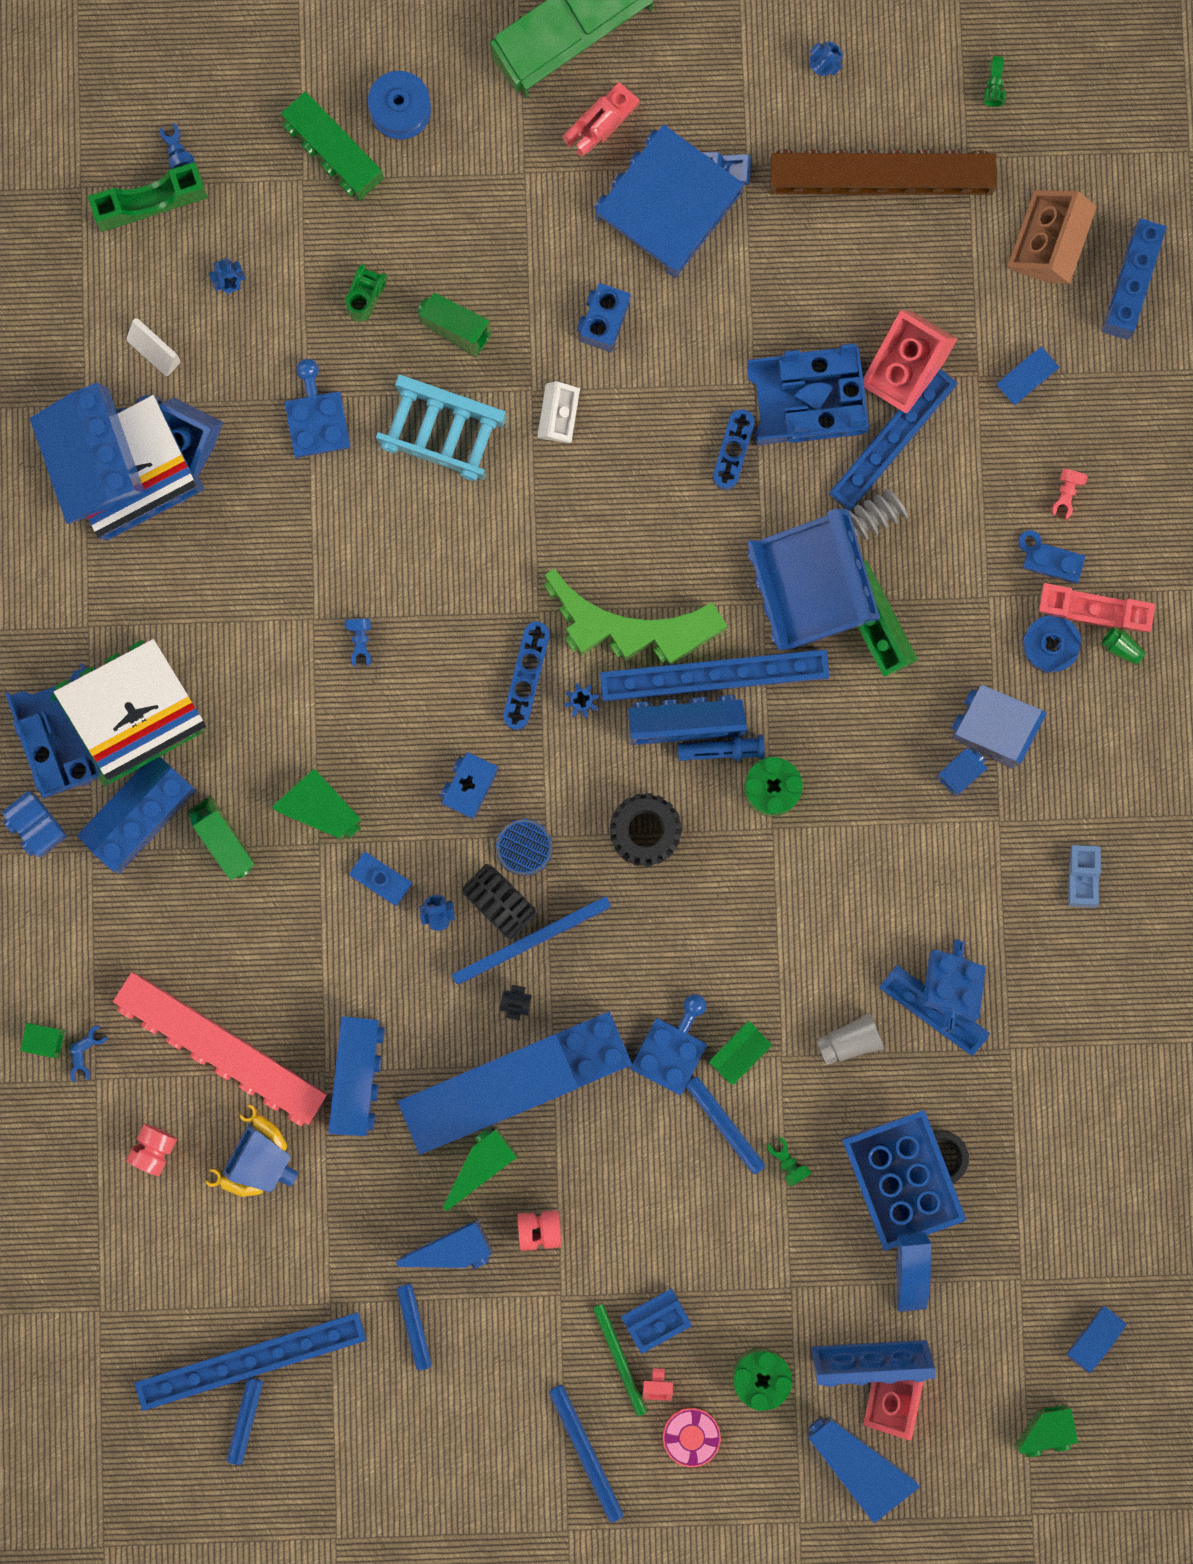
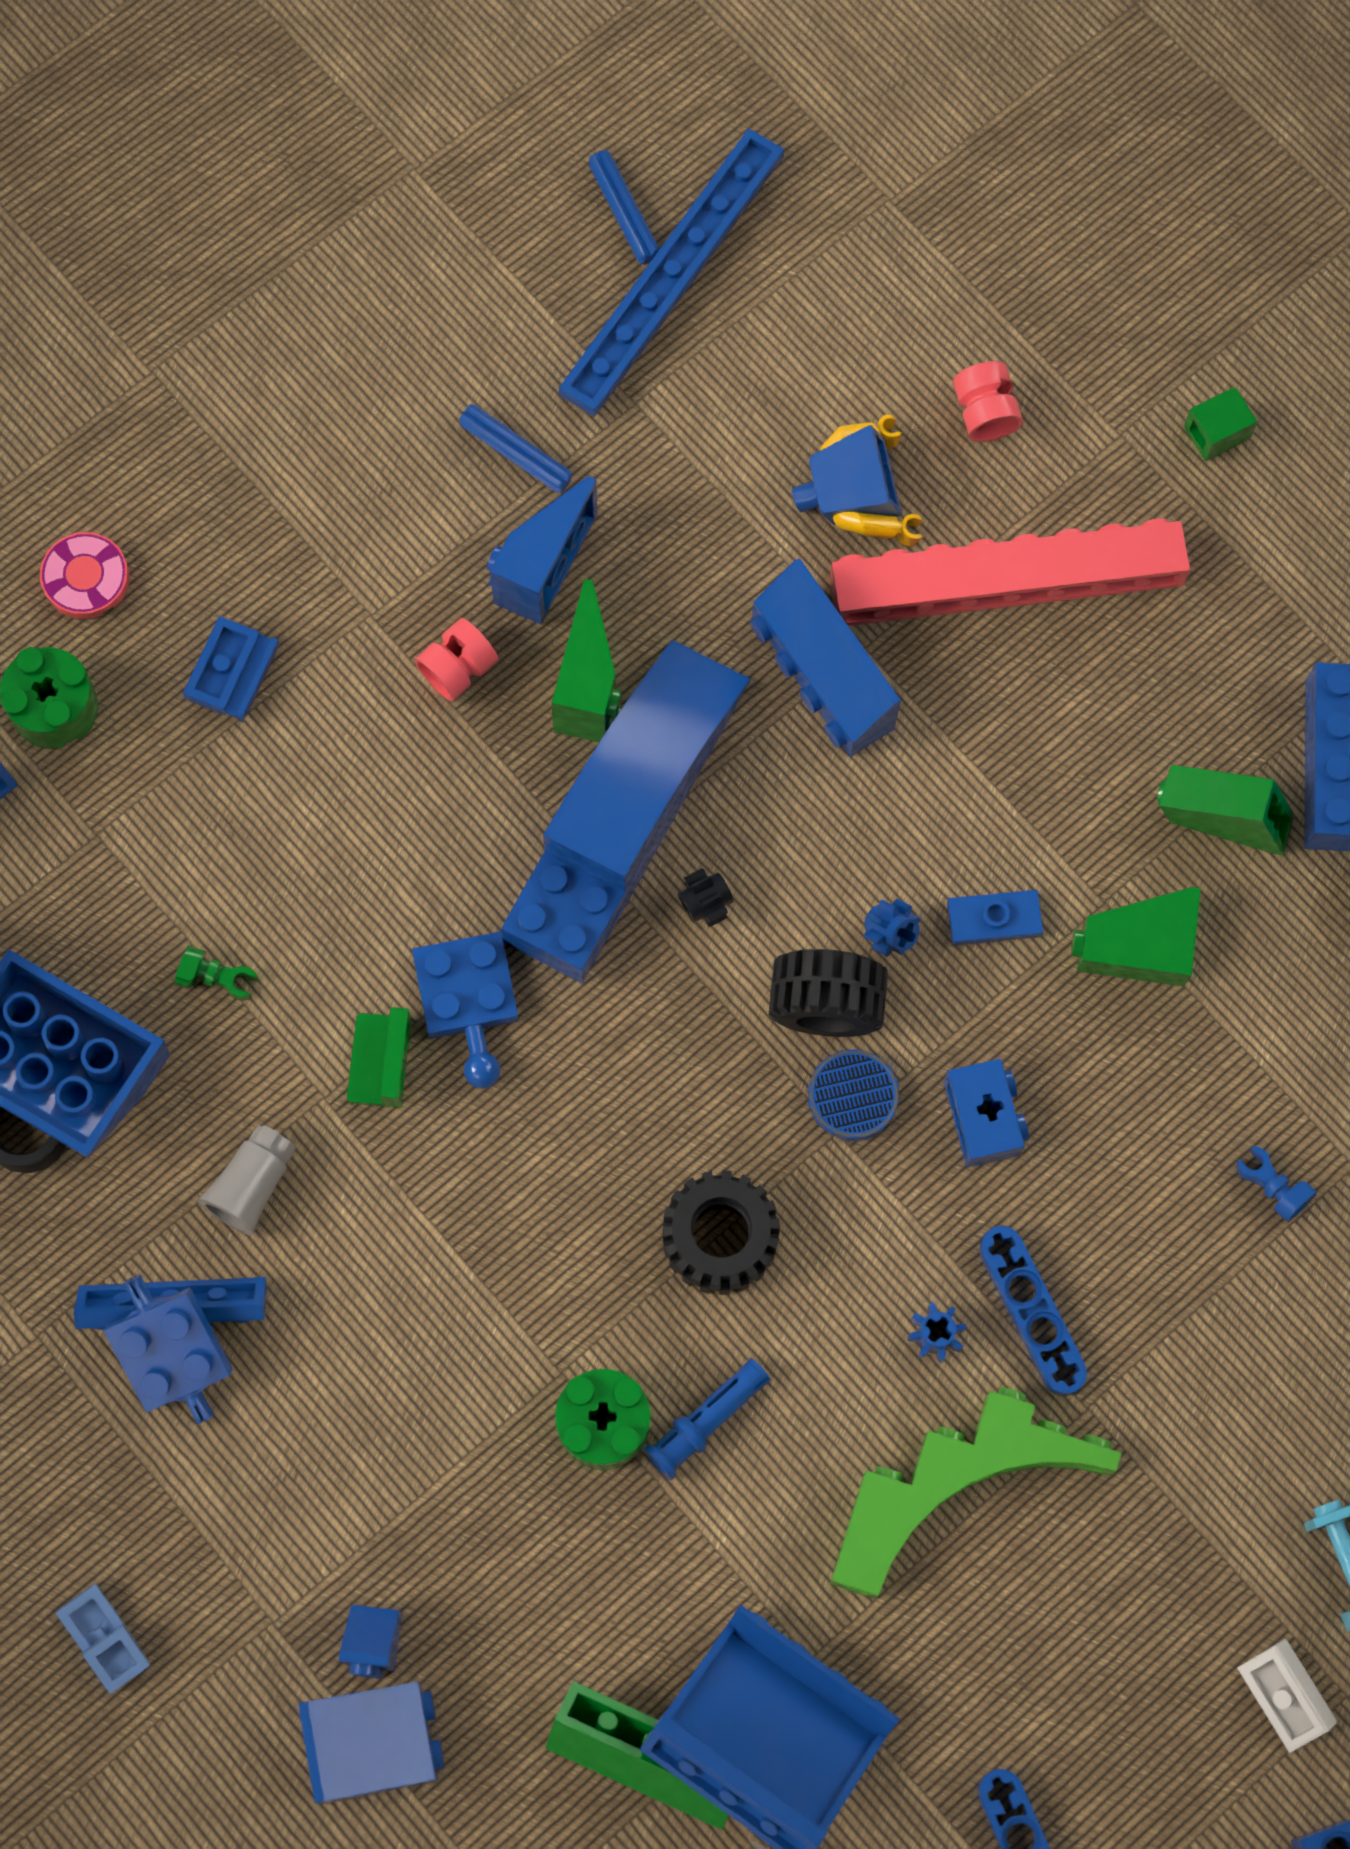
camera: 140 degrees right, 10 degrees down
(77, 1049) = (1171, 447): blue arm -> none
(531, 940) = (748, 987): blue tile -> none
(586, 1453) = (197, 464): blue axle -> none
(620, 1360) = (241, 596): green bar -> none
(657, 1388) = (169, 595): coral tile -> none
(686, 721) = (782, 1412): blue slope -> none
(714, 675) = (794, 1508): blue plate -> none
(725, 1125) = (328, 958): blue axle -> none

